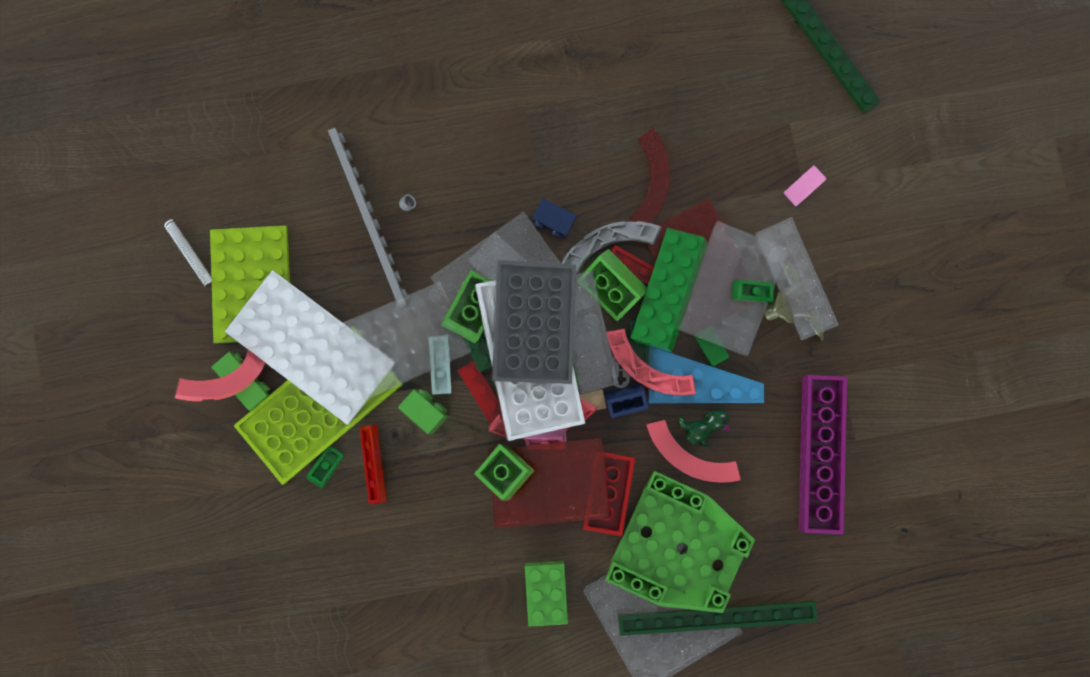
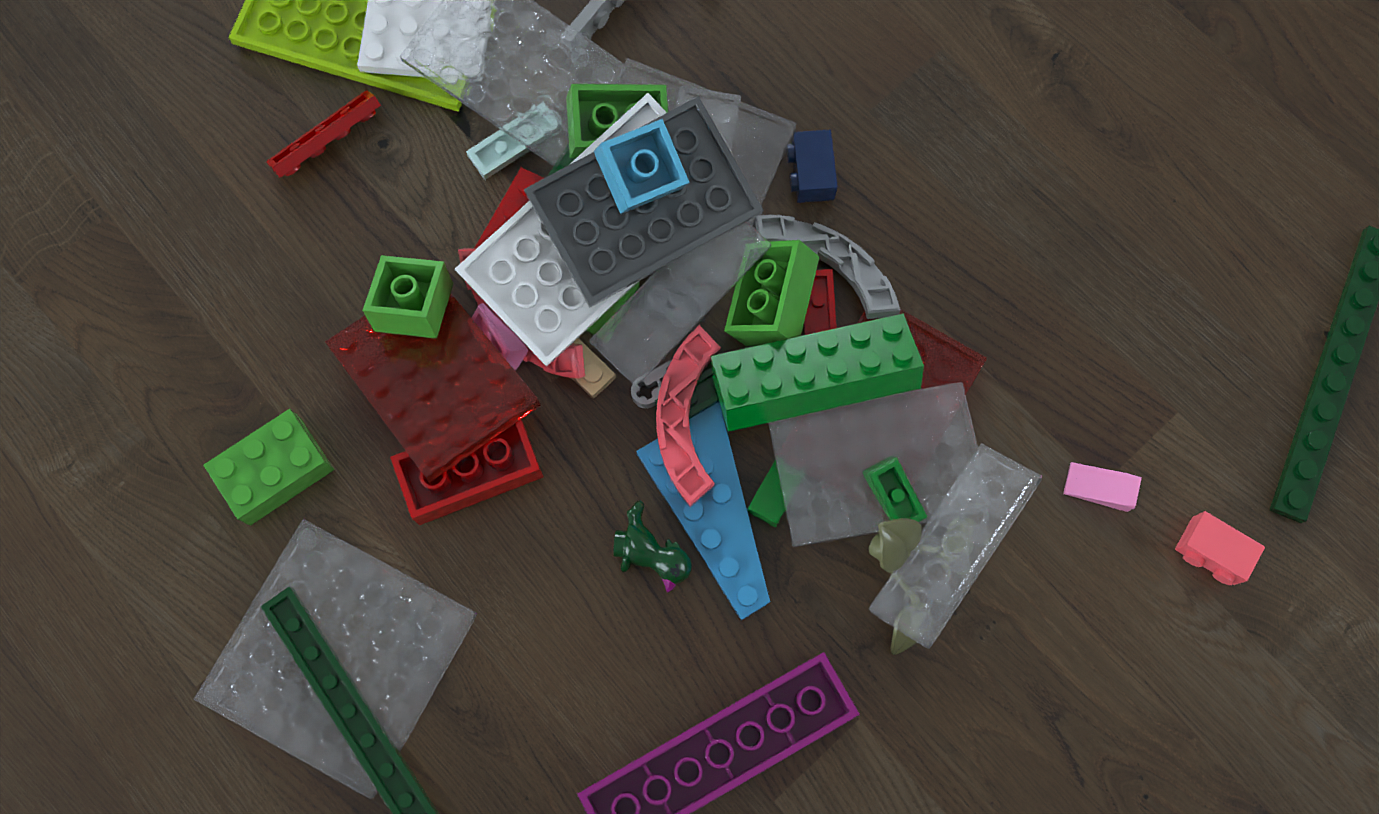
camera: 60 degrees right, 10 degrees down
(325, 467) = (284, 79): green slope -> none
(424, 411) = (432, 144): bright green brick -> none
(523, 314) = (641, 166): none -> medium azure brick
(626, 400) = (618, 413): dark blue brick -> none
(655, 568) = (390, 609): bright green wedge -> none
(659, 177) = (966, 277): clear red tile -> none
(688, 463) = (582, 560): coral tile -> none
(868, 152) = (1219, 549): none -> coral brick

